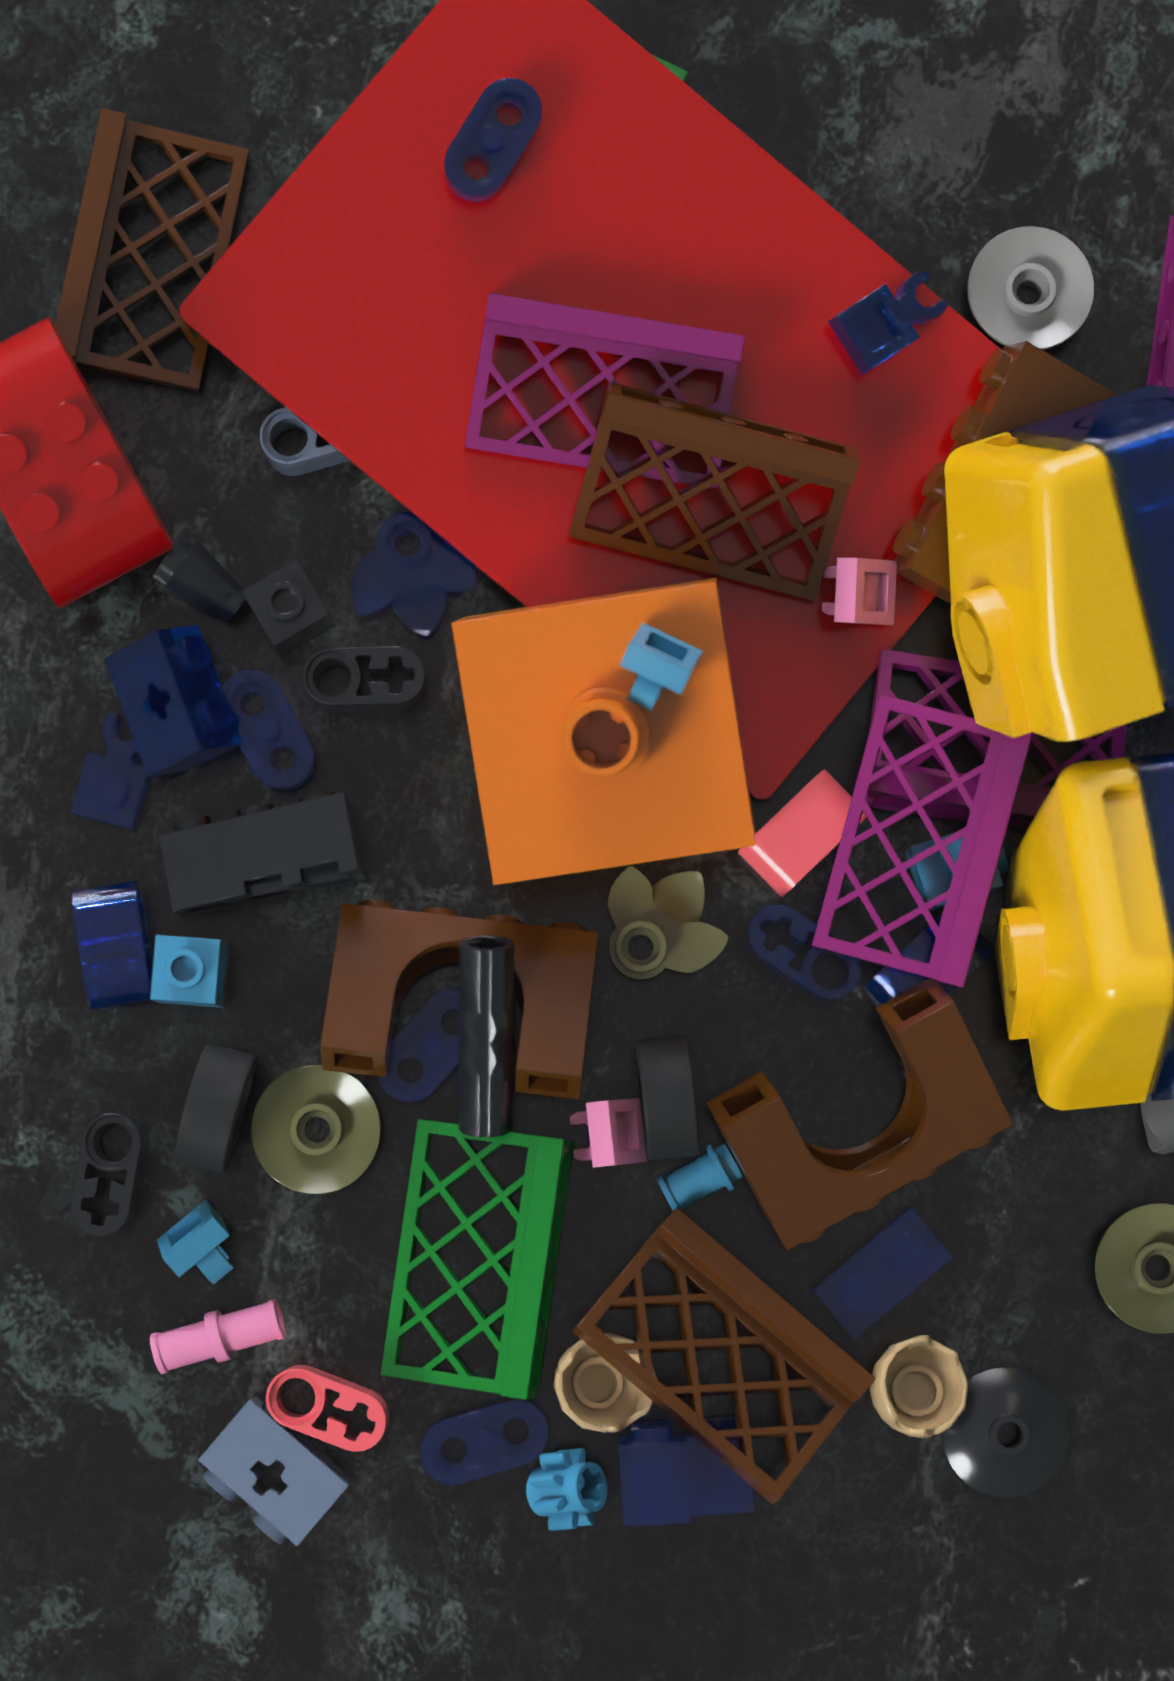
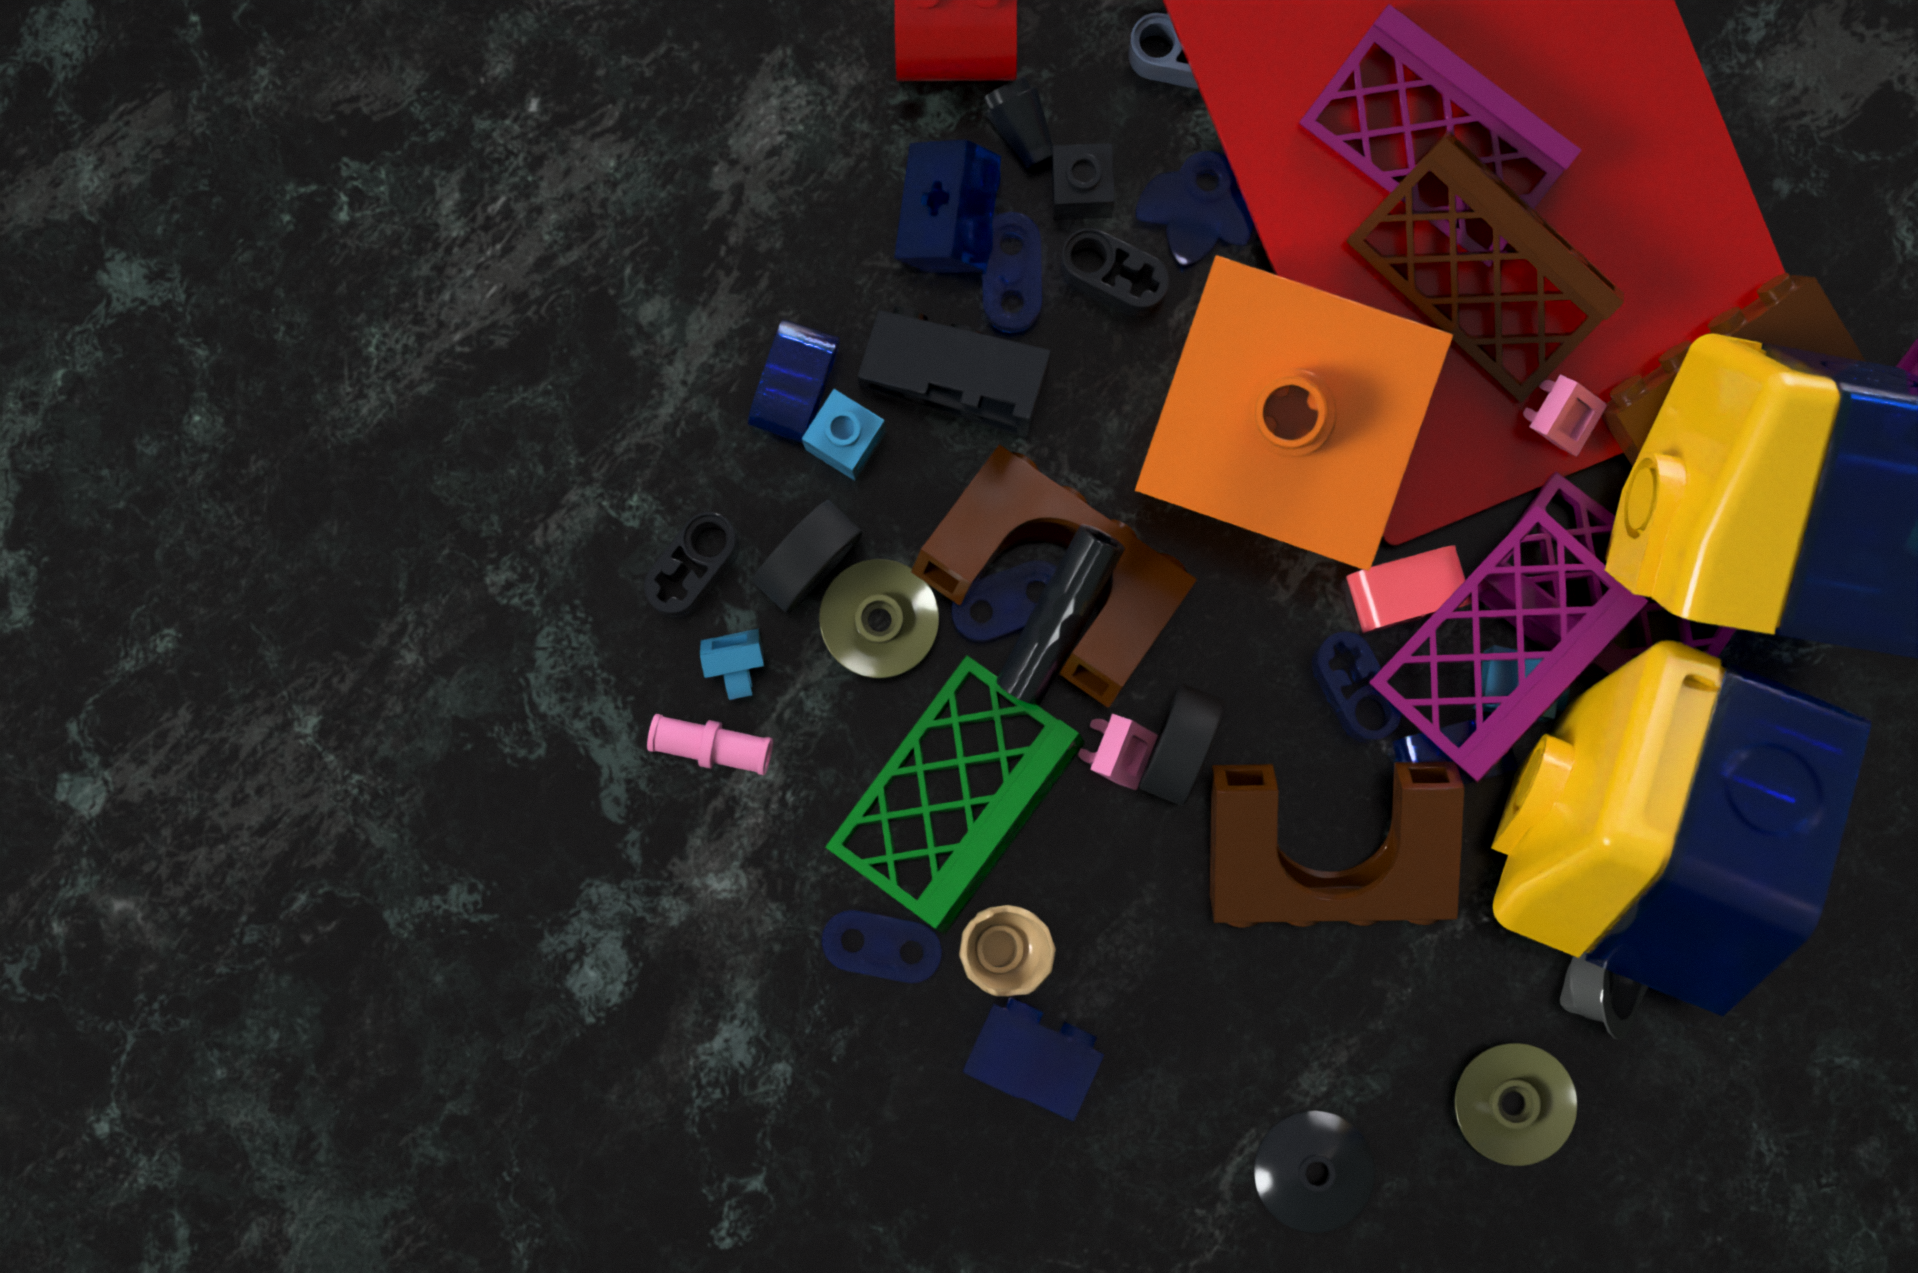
camera: 30 degrees right, 0 degrees up
(112, 784) = (861, 250): clear blue plate -> none
(310, 1475) = (702, 843): sand blue brick -> none
(337, 1427) = (768, 871): coral beam -> none
(566, 1489) = (928, 1021): dark azure gear -> none
(659, 664) = (1371, 377): dark azure tile -> none
(668, 918) = (1258, 599): olive plate -> none
(700, 1177) = (1173, 827): dark azure pin -> none
(761, 1316) = (1164, 970): reddish brown fence -> none
(881, 1273) = (1281, 985): clear blue plate -> none
(882, 323) = (1700, 202): clear blue plate -> none
(919, 1387) = (1263, 1093): tan hair -> none
(1034, 259) = (1860, 223): light grey dish -> none

